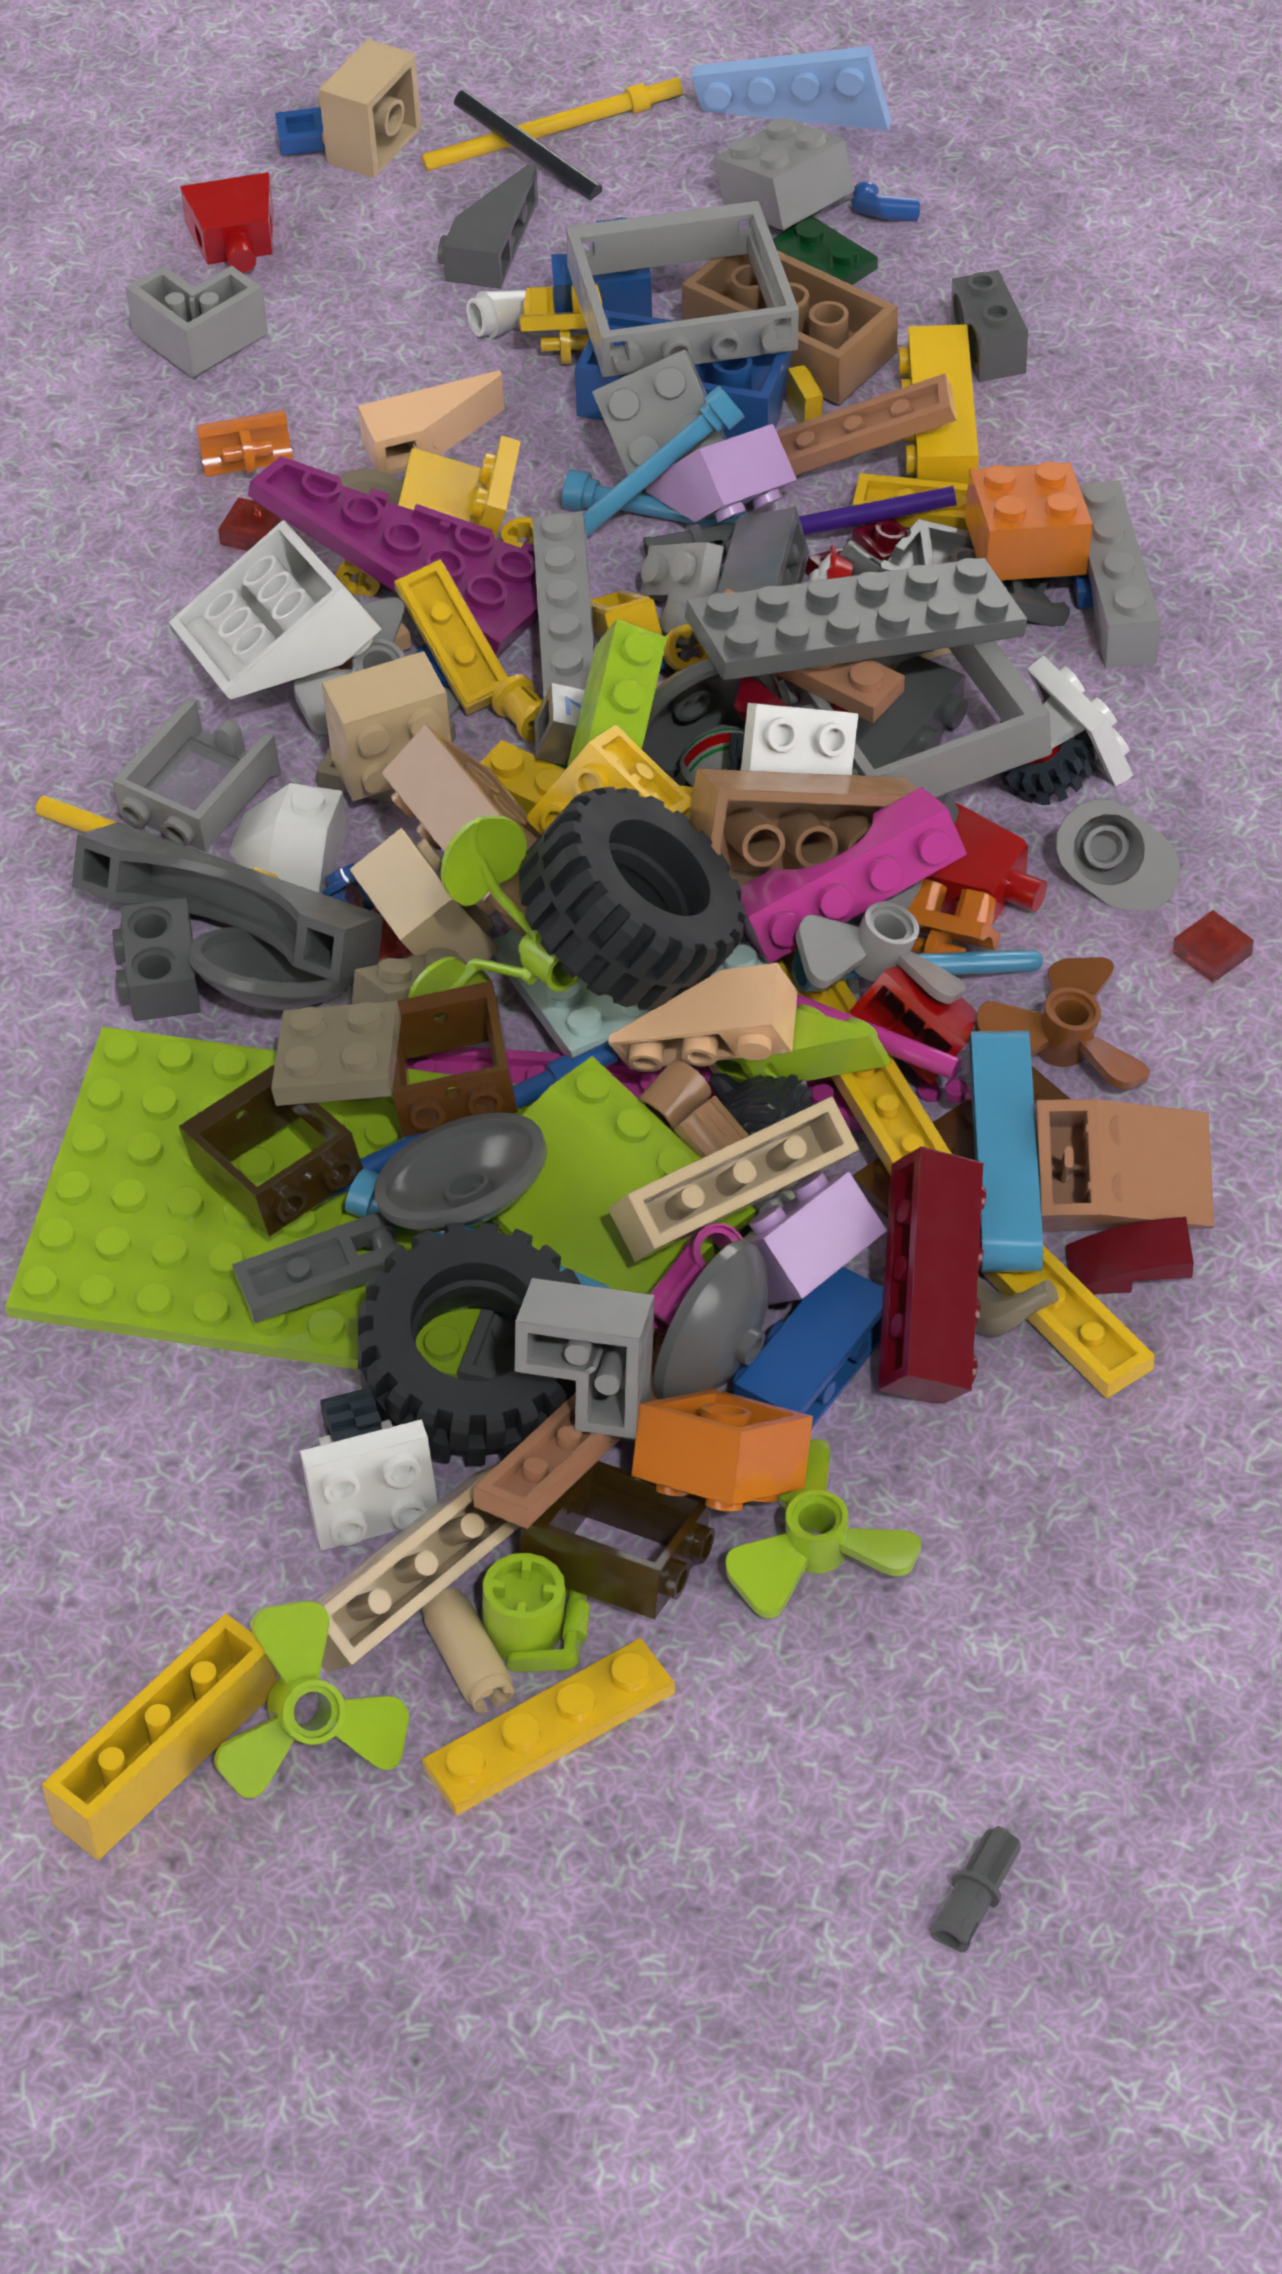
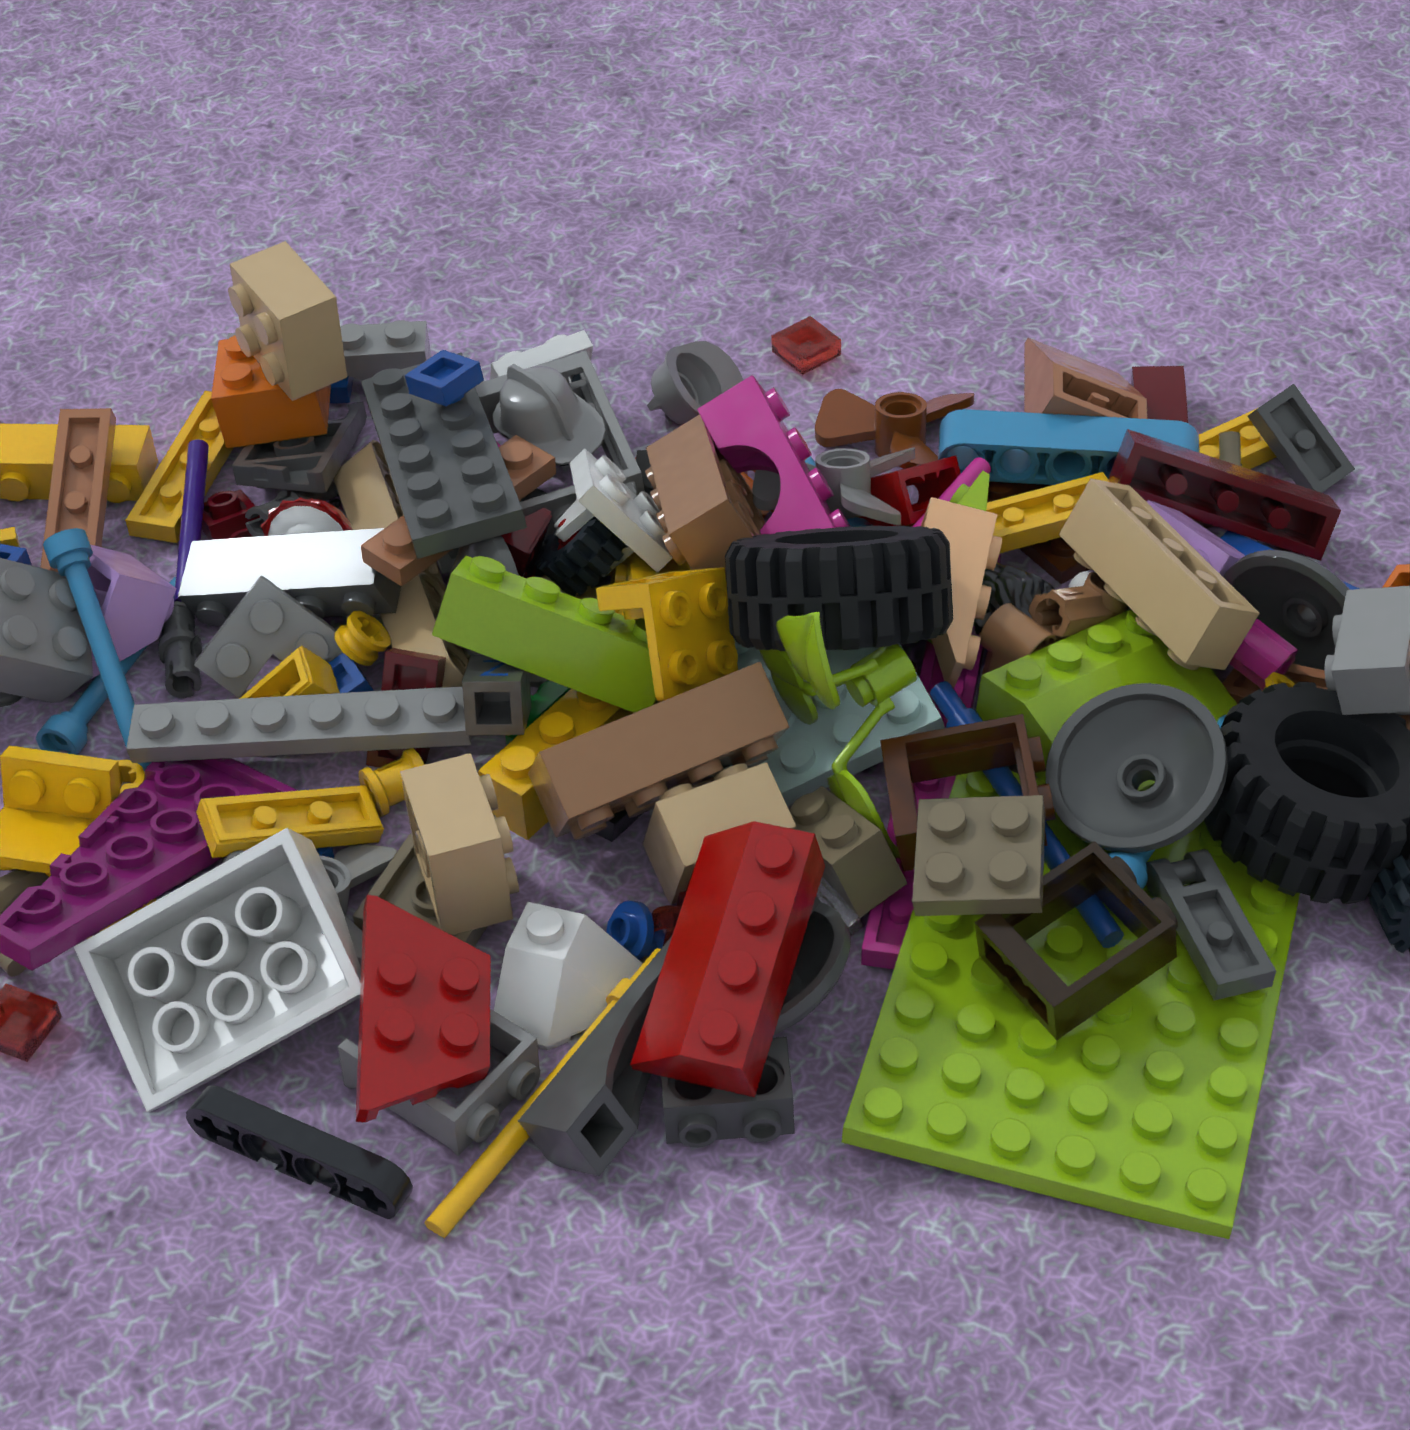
camera: 85 degrees left, 5 degrees down
(110, 707) = (300, 1150): none -> black beam
(205, 729) = (419, 1010): none -> red wing
(227, 908) = (731, 957): none -> red slope
(928, 588) = (444, 378): none -> blue plate
(943, 696) = (547, 413): none -> light grey piece
(1020, 472) = (287, 321): none -> tan brick
(1066, 1369) = (1301, 441): none -> dark grey plate

